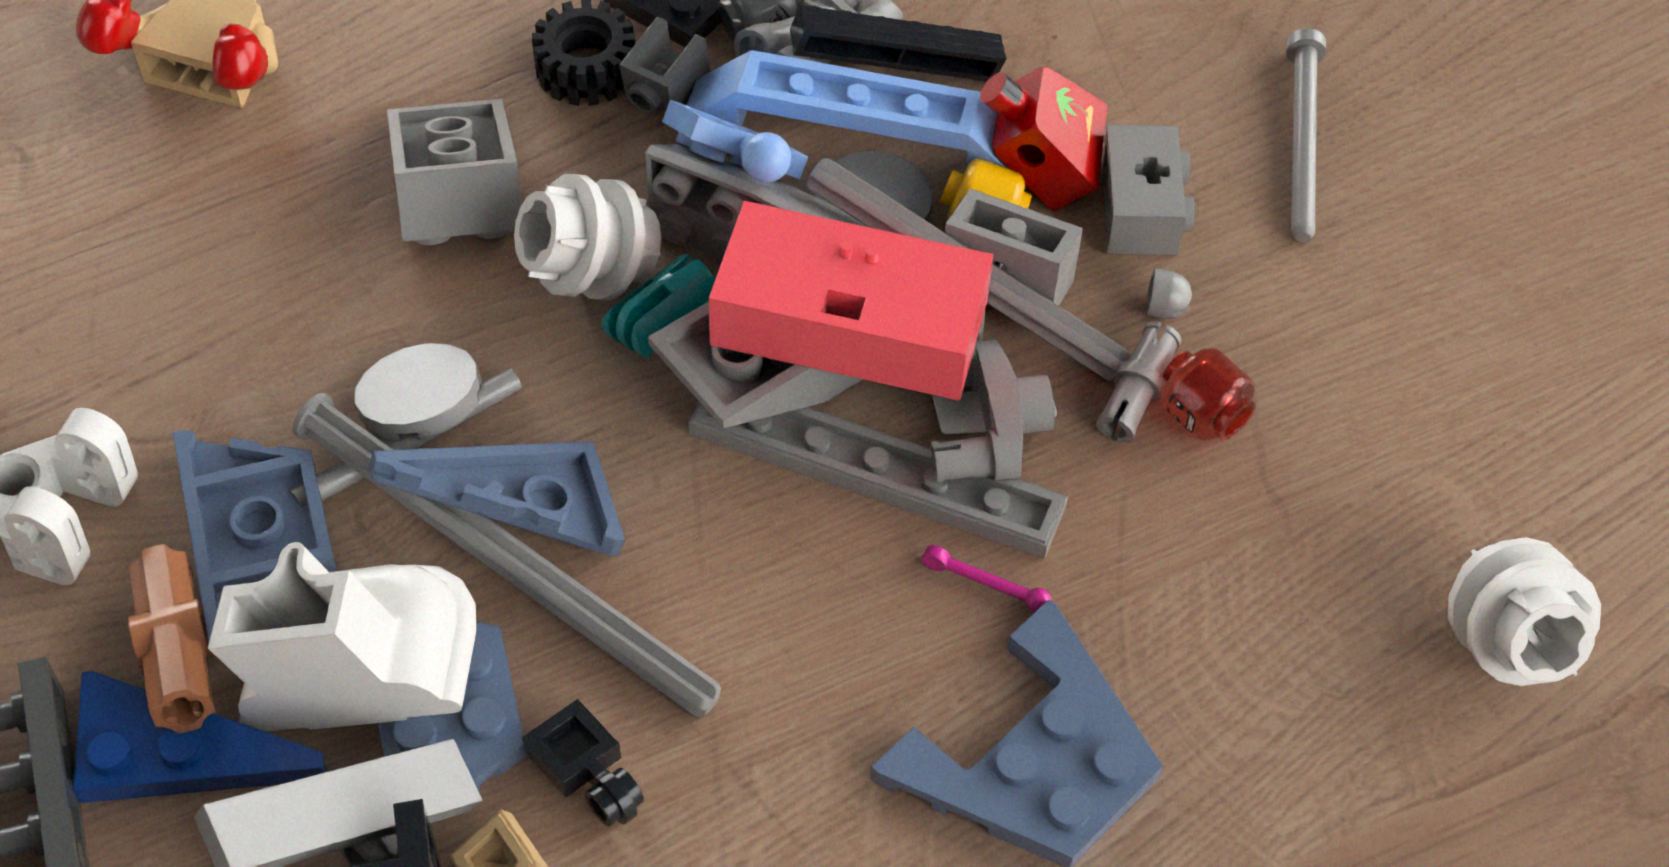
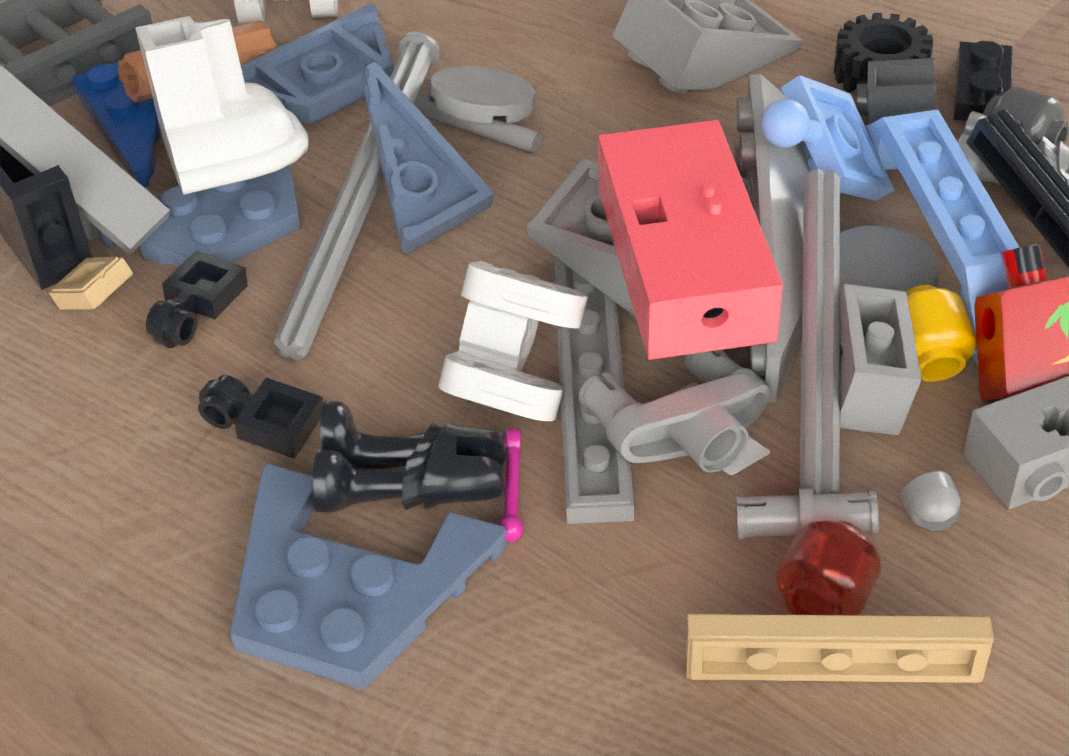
camera: 70 degrees right, 10 degrees down
(587, 237) = (662, 89): white piece -> none
(808, 520) = (499, 337): none -> white piece
(808, 737) = (272, 418): none -> black plate
(961, 631) = (439, 464): none -> black piece
(1286, 426) = (838, 648): none -> tan tile

